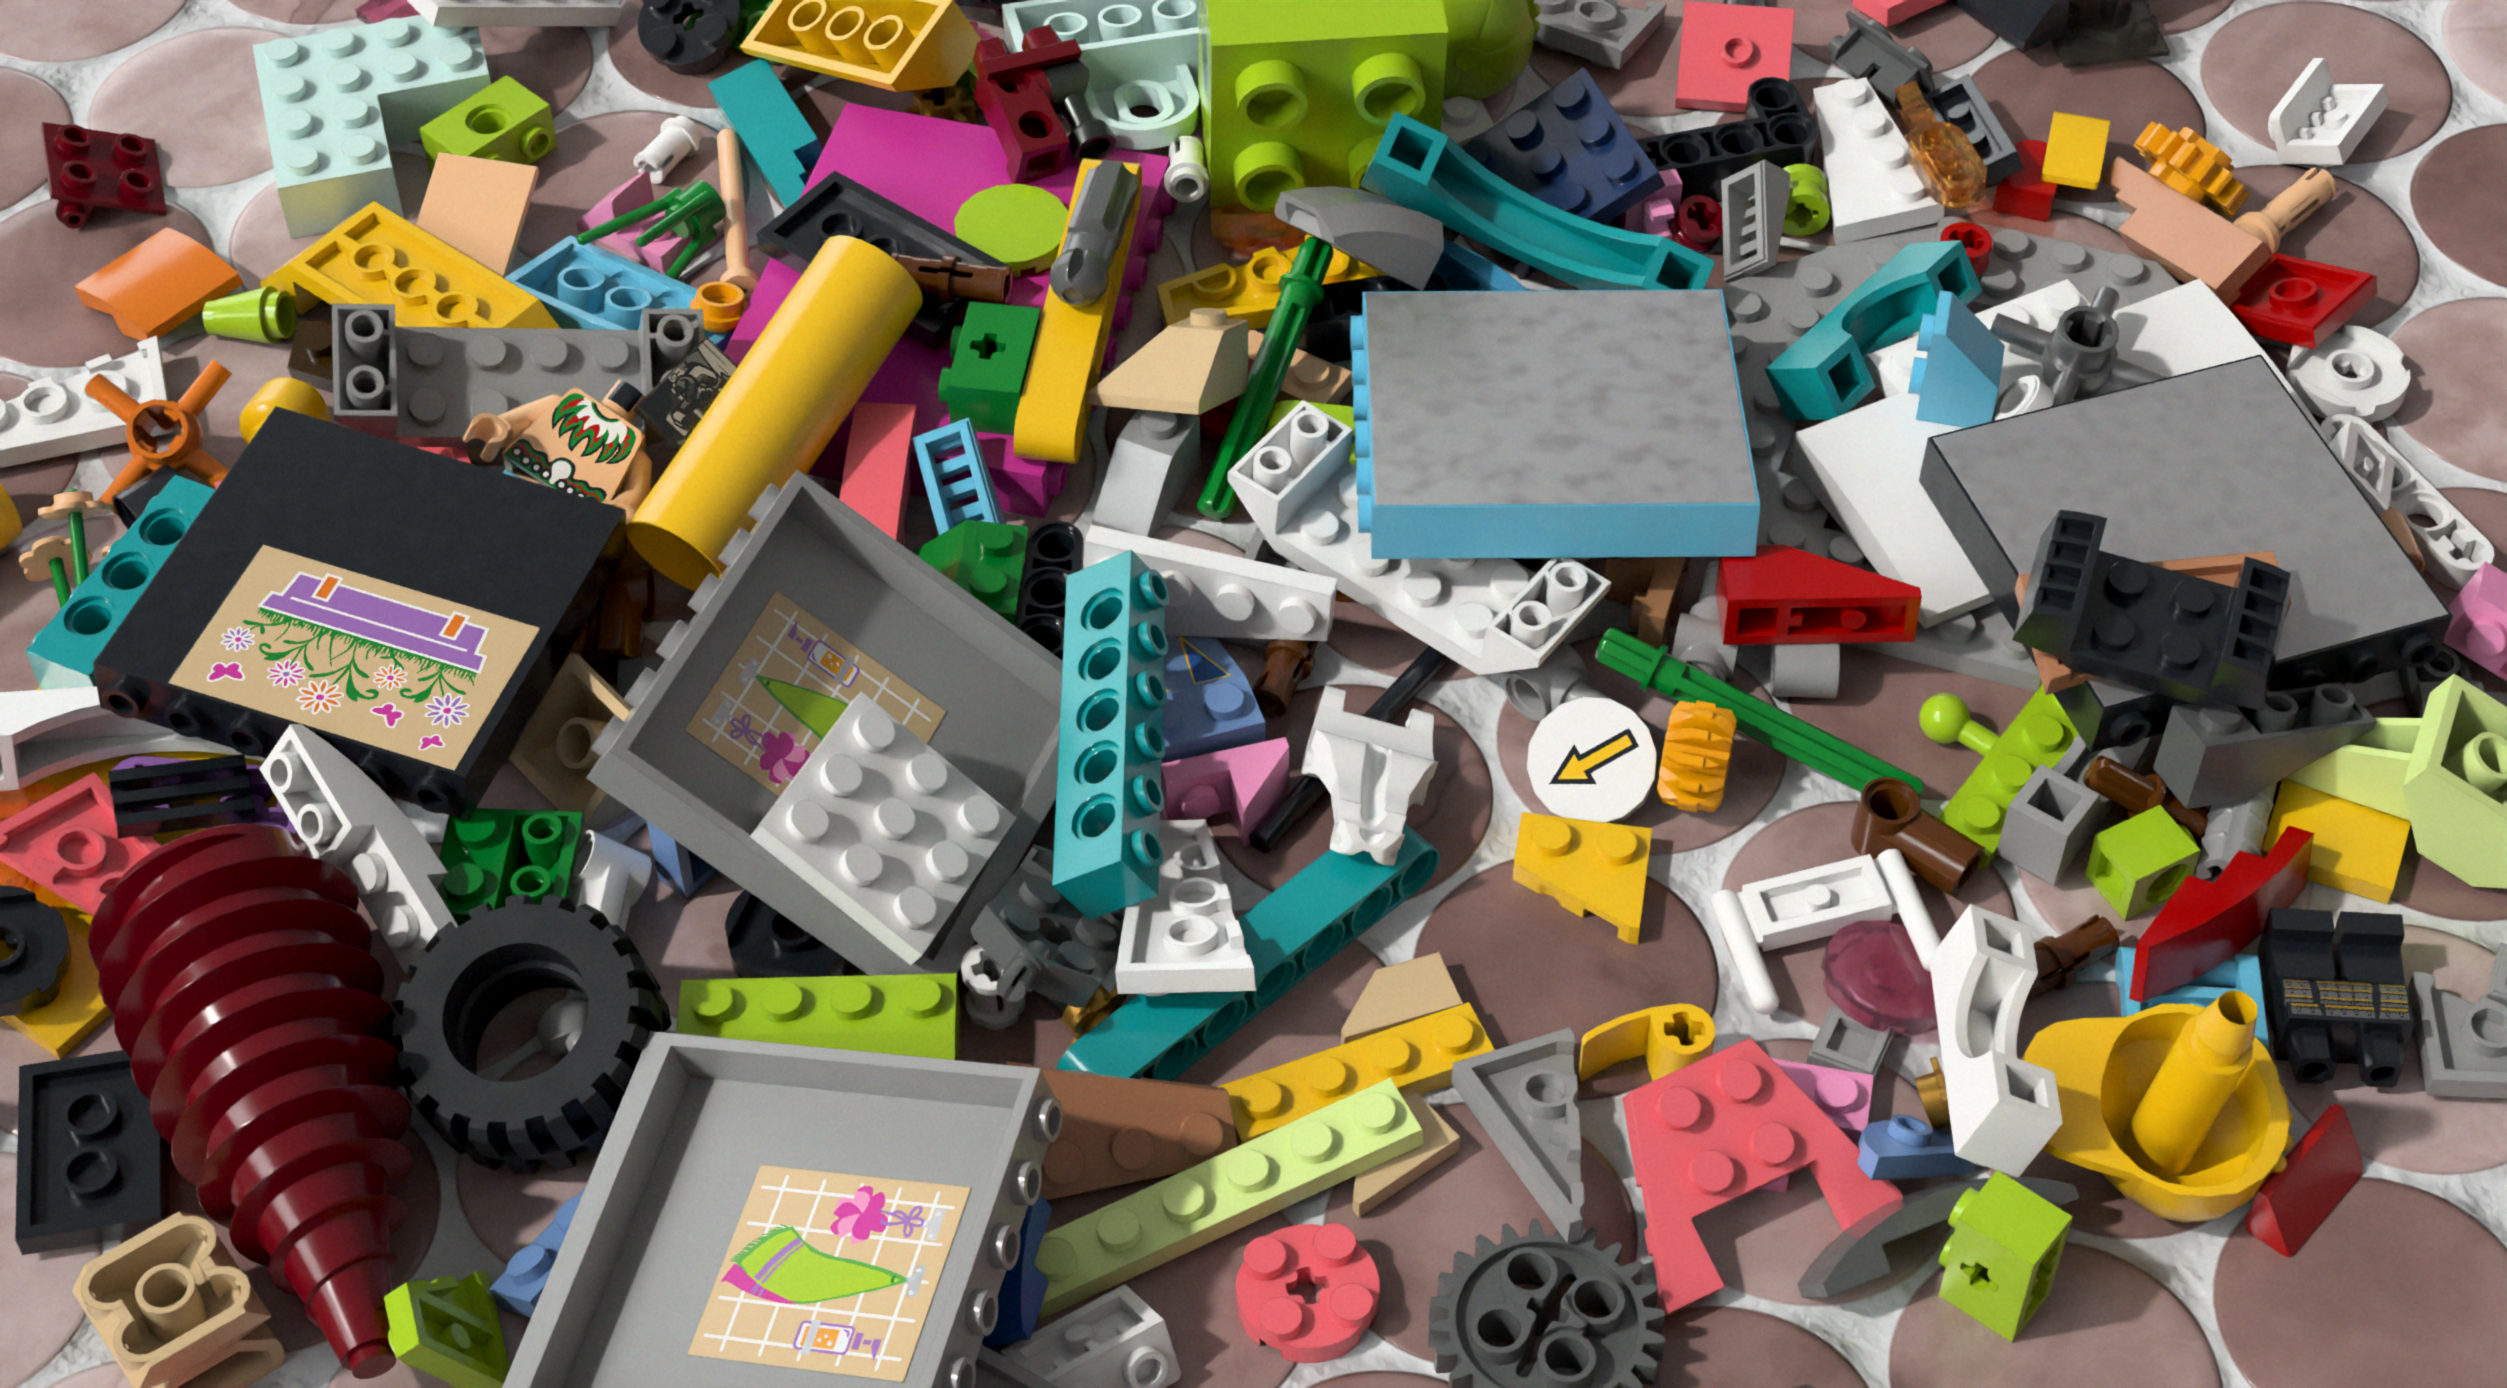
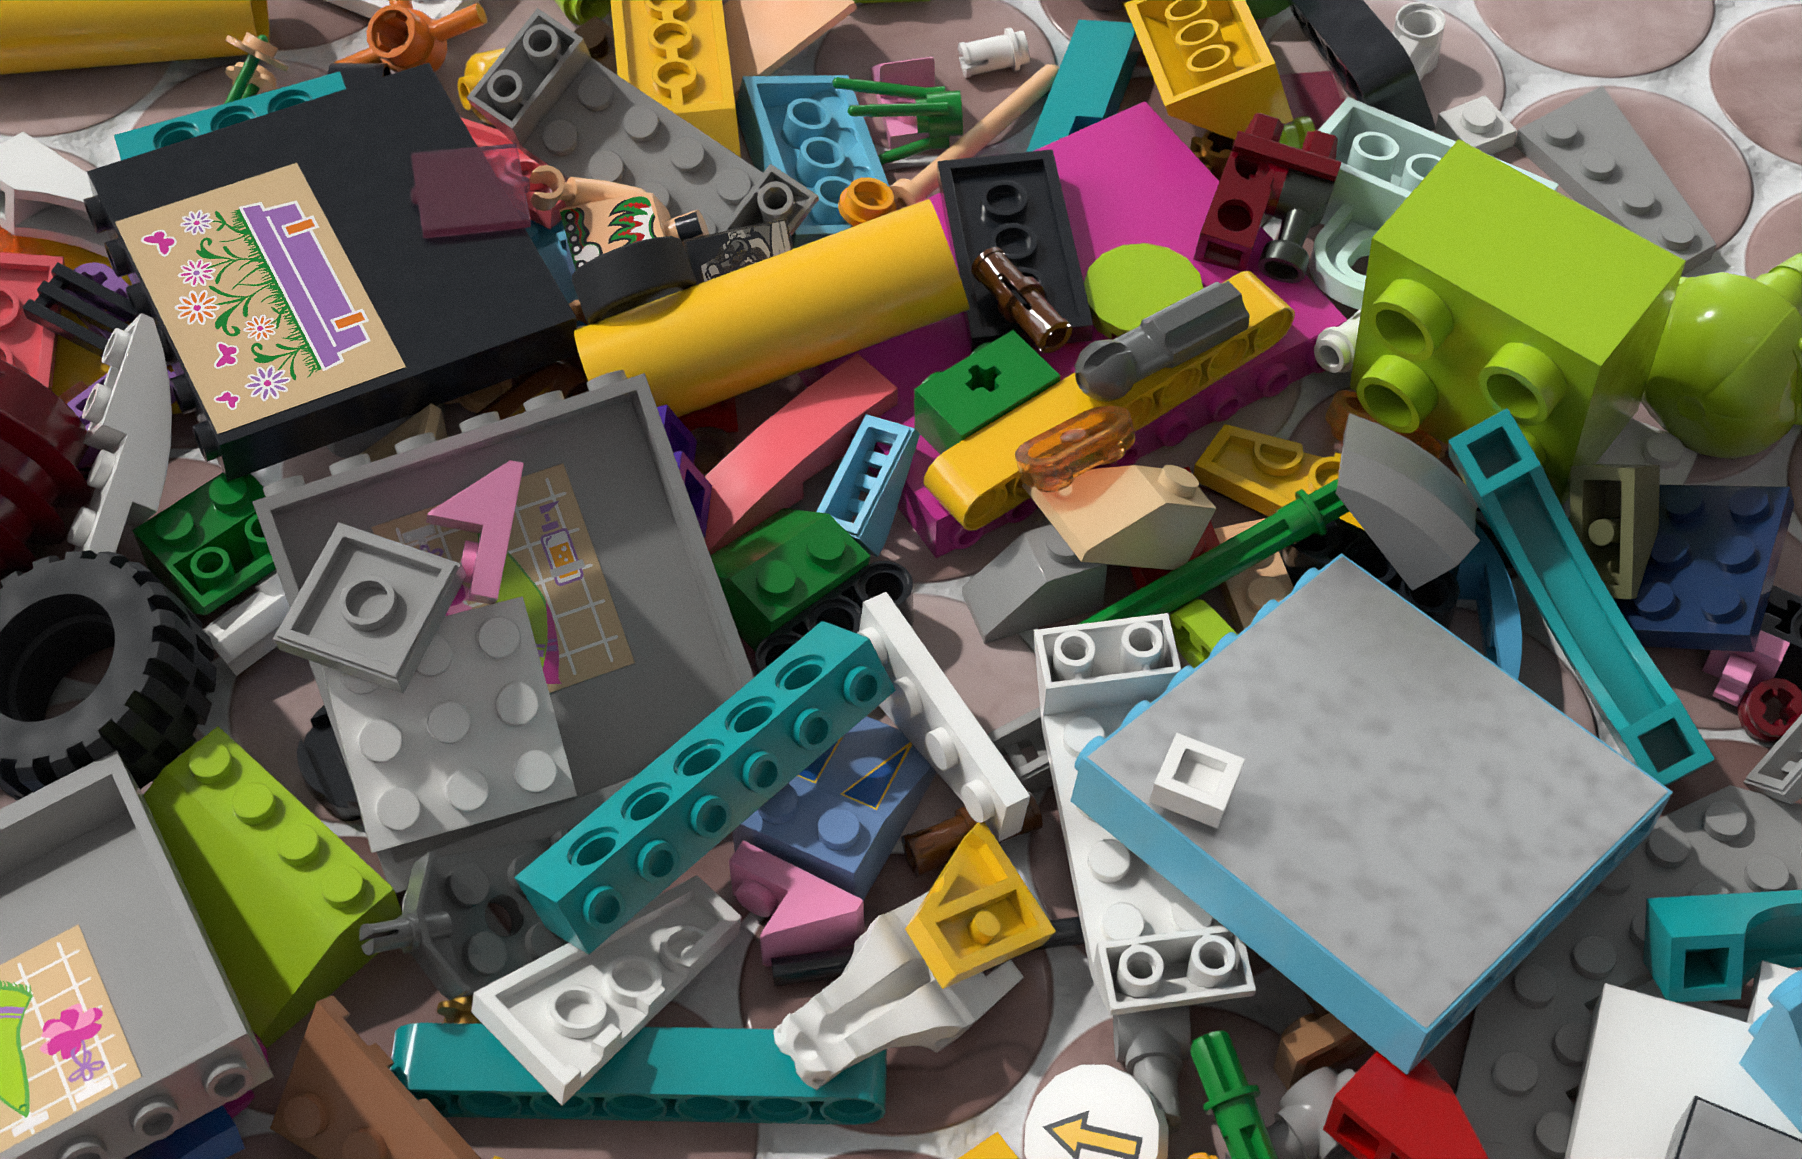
camera: 45 degrees right, 5 degrees up
(433, 473) = (470, 190): none -> clear pink piece
(646, 451) = (632, 277): none -> black tyre
(777, 762) = (370, 607): none -> light grey plate
(796, 641) = (489, 510): none -> bright pink slope
(1114, 342) = (1075, 447): none -> clear orange plate
(1366, 684) = (976, 912): none -> yellow wing
(1467, 462) = (1196, 780): none -> white plate
(1496, 148) = (1616, 520): none -> olive slope

